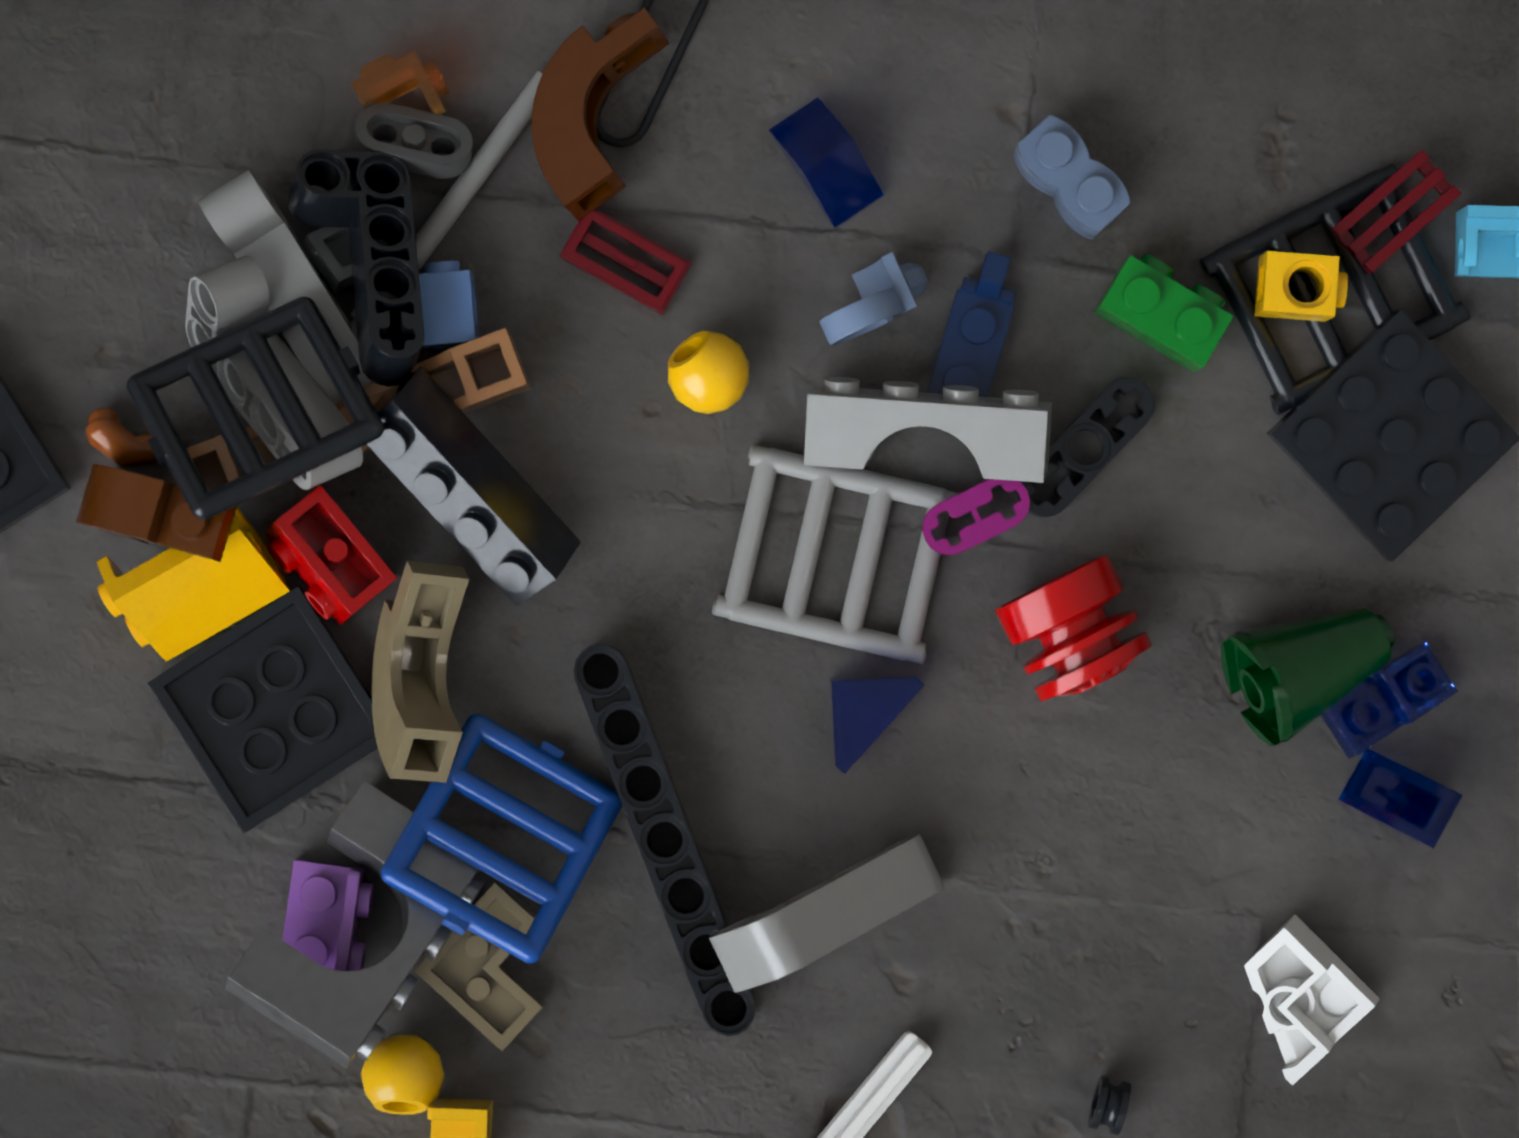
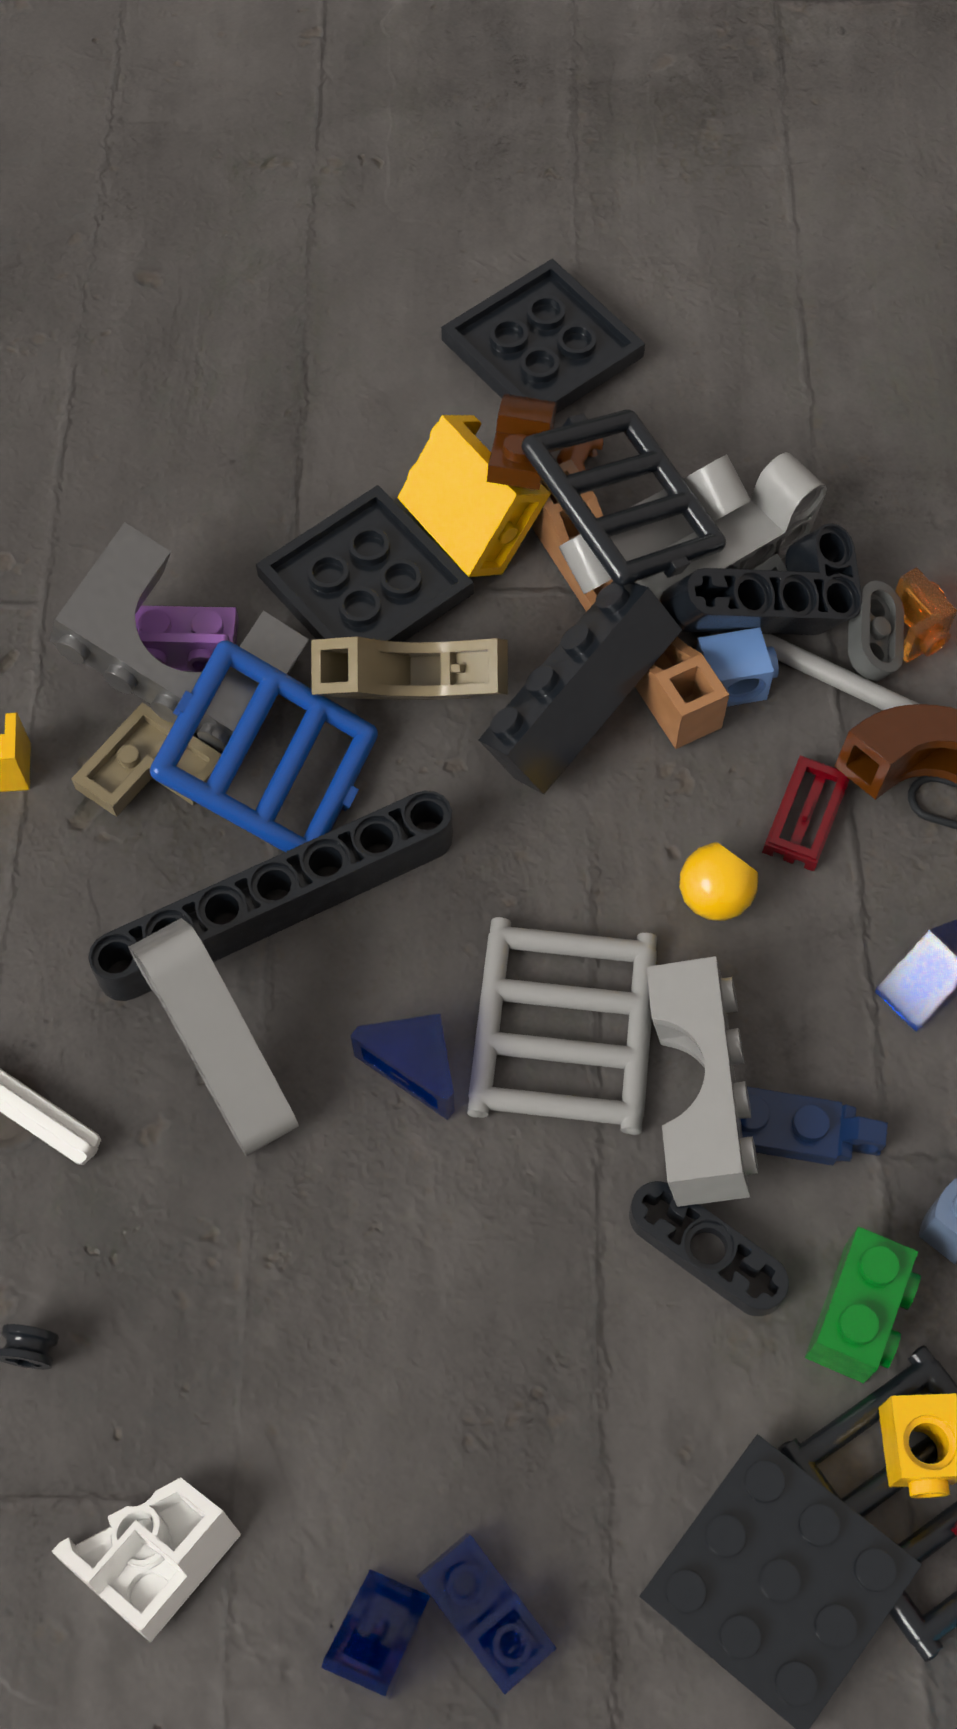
camera: 85 degrees right, 25 degrees down
(328, 556) = (504, 594): red brick -> none
(402, 1075) = (49, 701): yellow piece -> none
(885, 292) = (811, 1022): sand blue piece -> none
(983, 528) = (611, 1145): magenta beam -> none
(1074, 629) = (515, 1244): red wheel -> none
(1303, 668) = (513, 1505): dark green cone -> none

